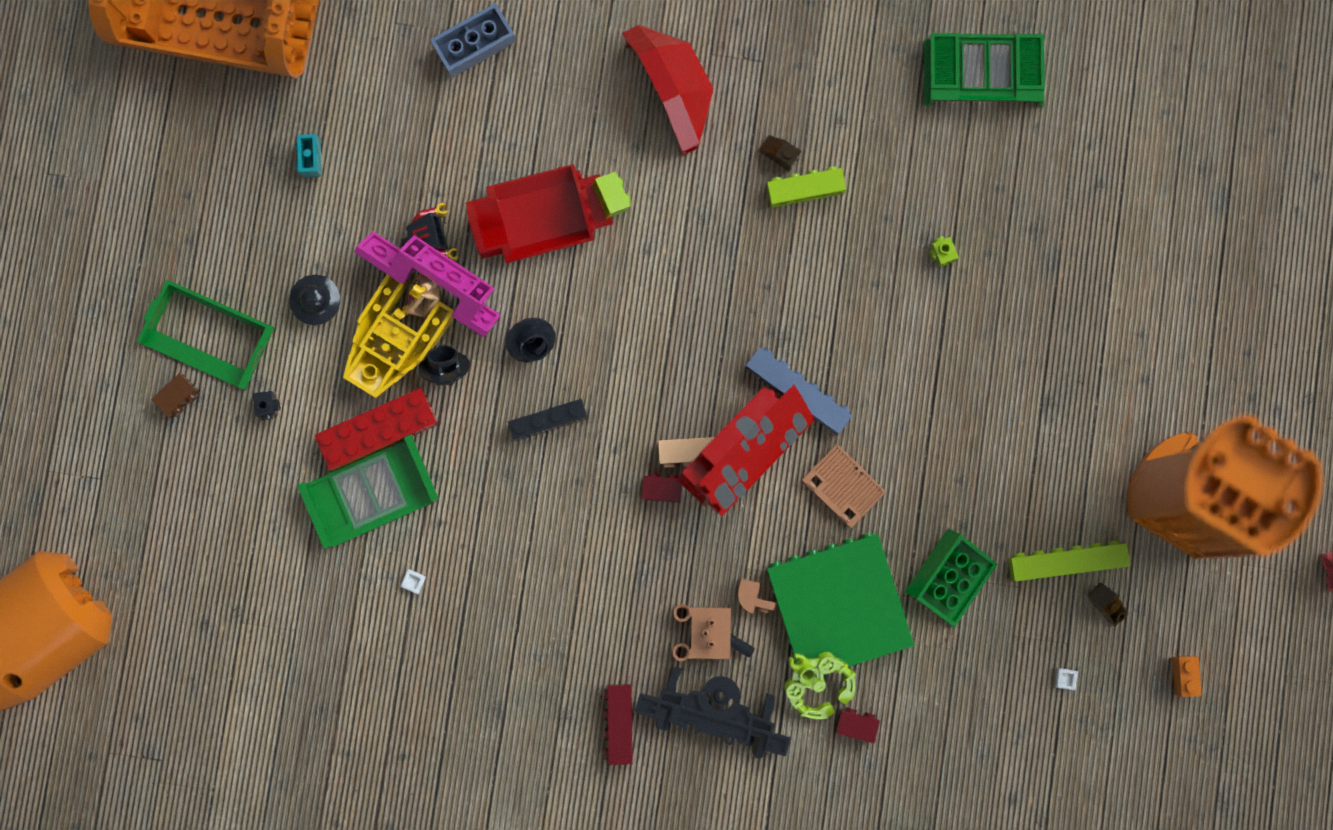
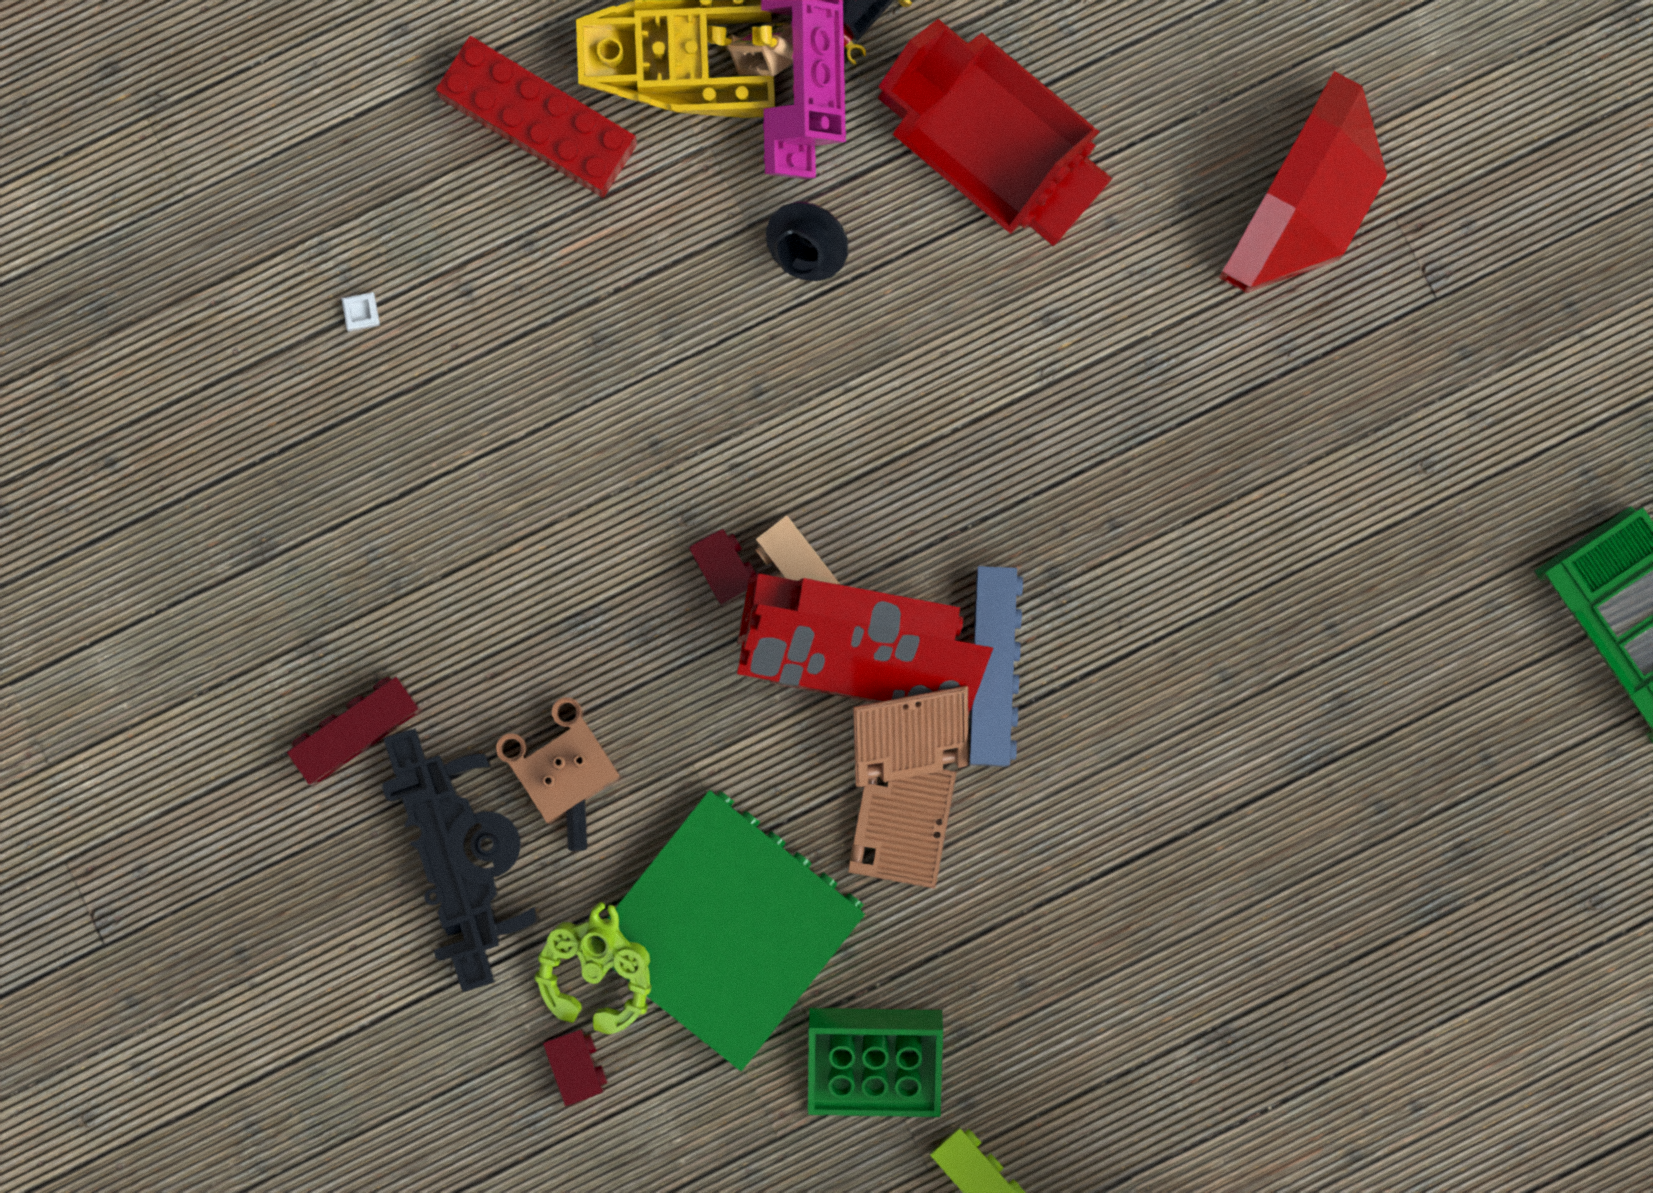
camera: 55 degrees right, 0 degrees up
(368, 493) = (439, 166): green piece -> none
(444, 365) = (688, 147): black helmet -> none
(547, 420) = (711, 343): black brick -> none
(611, 194) = (1092, 214): lime brick -> none
(747, 597) = (650, 791): nougat brick -> none
(780, 152) = (1320, 411): dark brown slope -> none
(806, 187) = (1294, 481): lime brick -> none
(807, 453) = (911, 736): none -> nougat window
(943, 251) = (1337, 738): lime brick -> none

